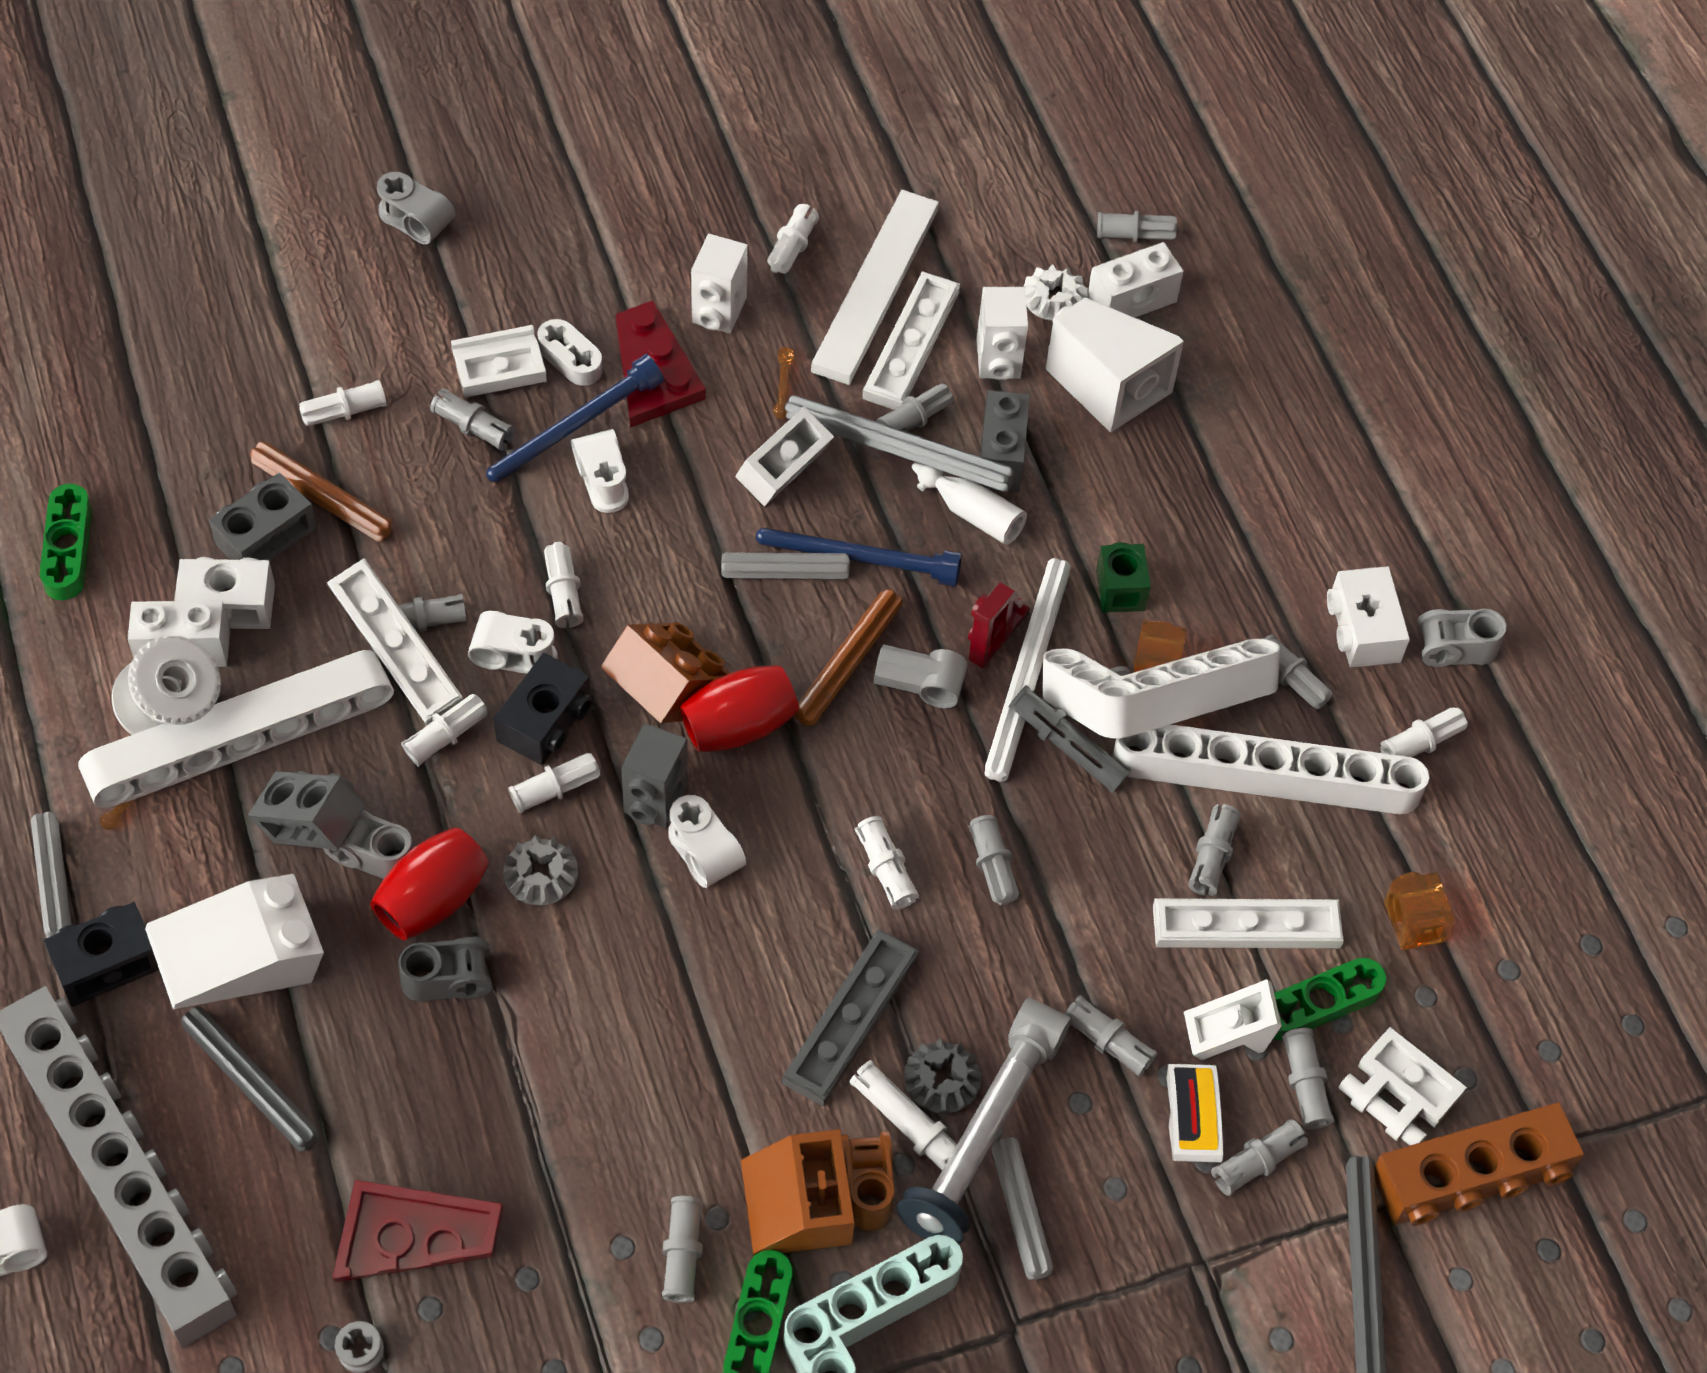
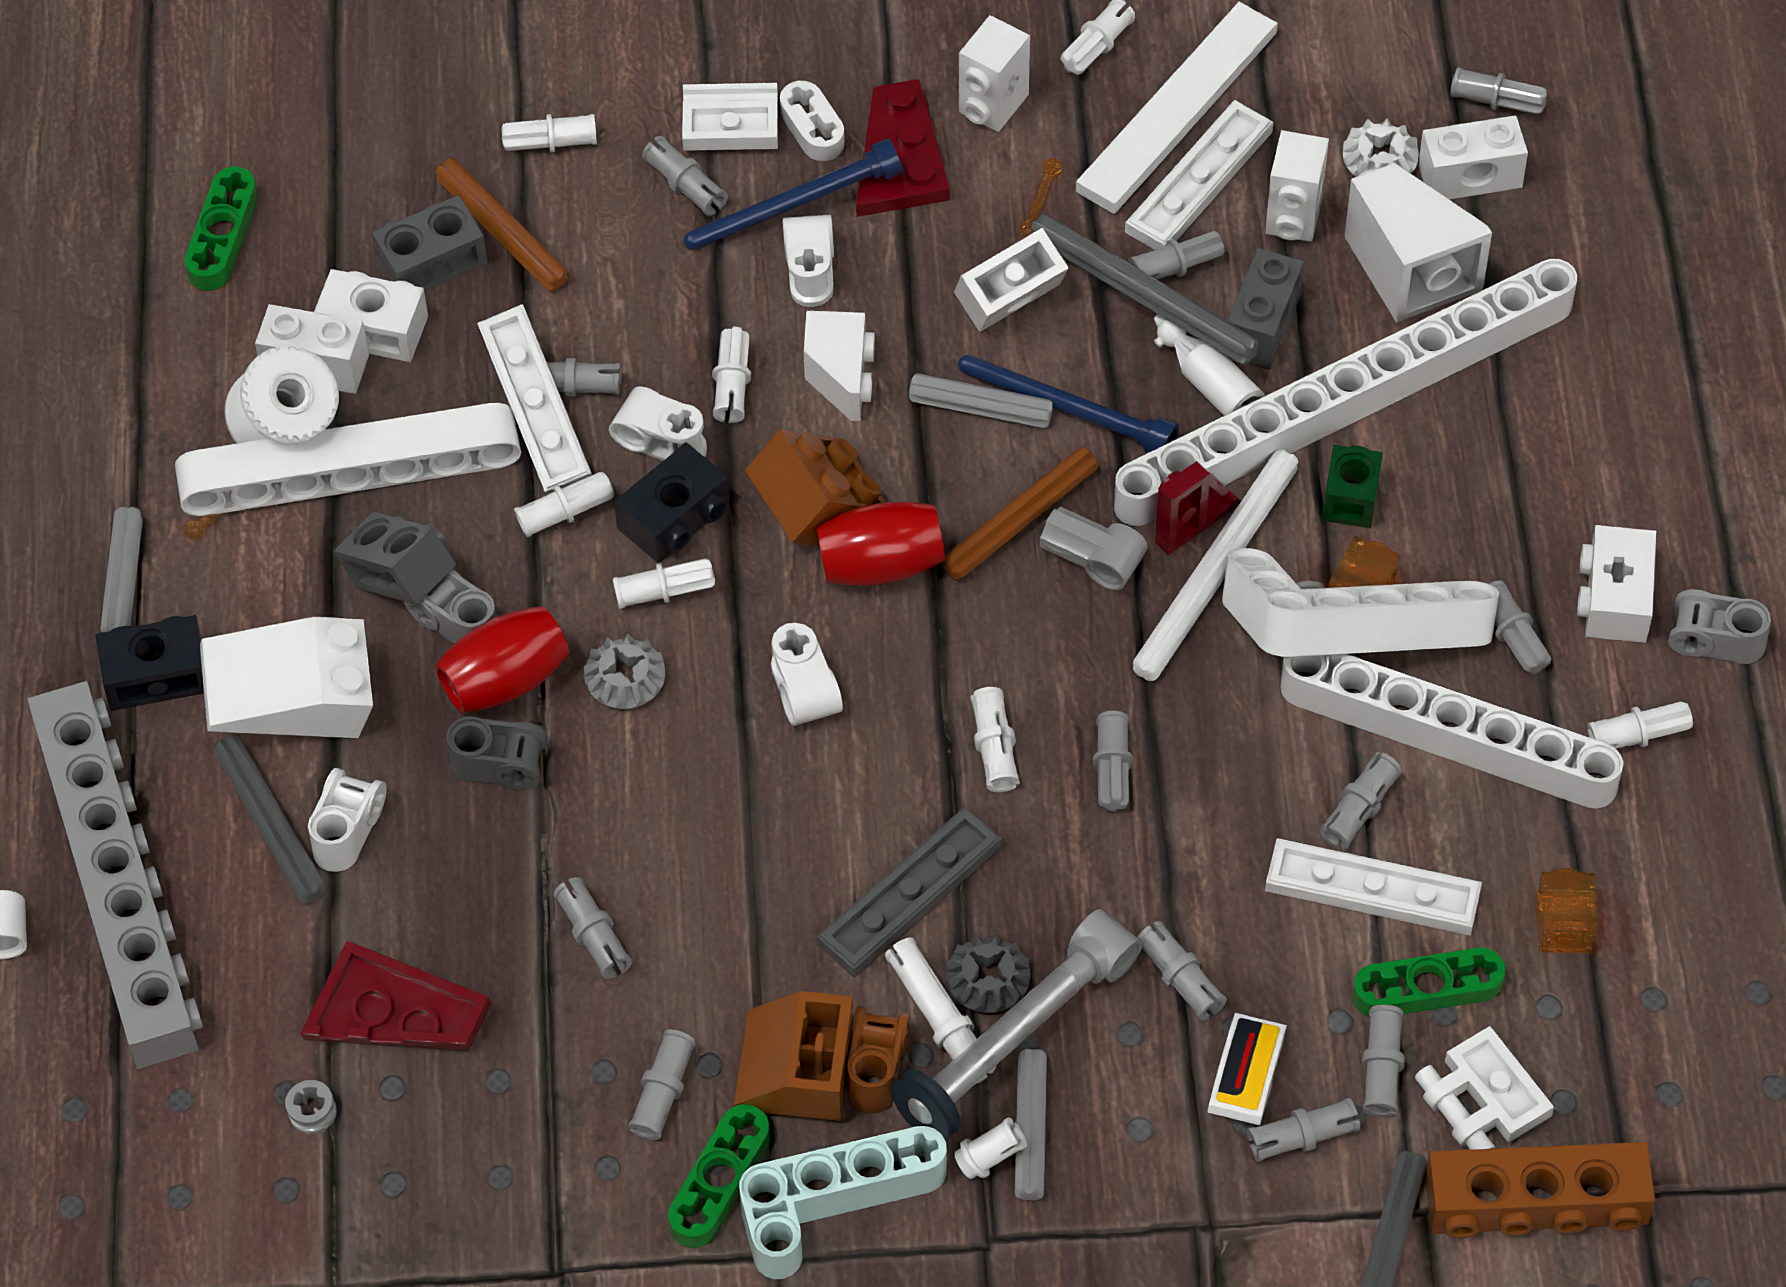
camera: 20 degrees right, 0 degrees up
(320, 1055) = (346, 811): none -> white piece
(577, 1114) = (592, 928): none -> light grey pin
(651, 555) = (835, 359): none -> white slope
(654, 775) = (766, 593): dark grey brick -> none
(995, 1241) = (989, 1149): none -> white pin
(1028, 703) = (1221, 632): dark grey pin -> none
(1111, 482) = (1537, 296): none -> white beam
(1234, 1020) = (1315, 982): white slope -> none

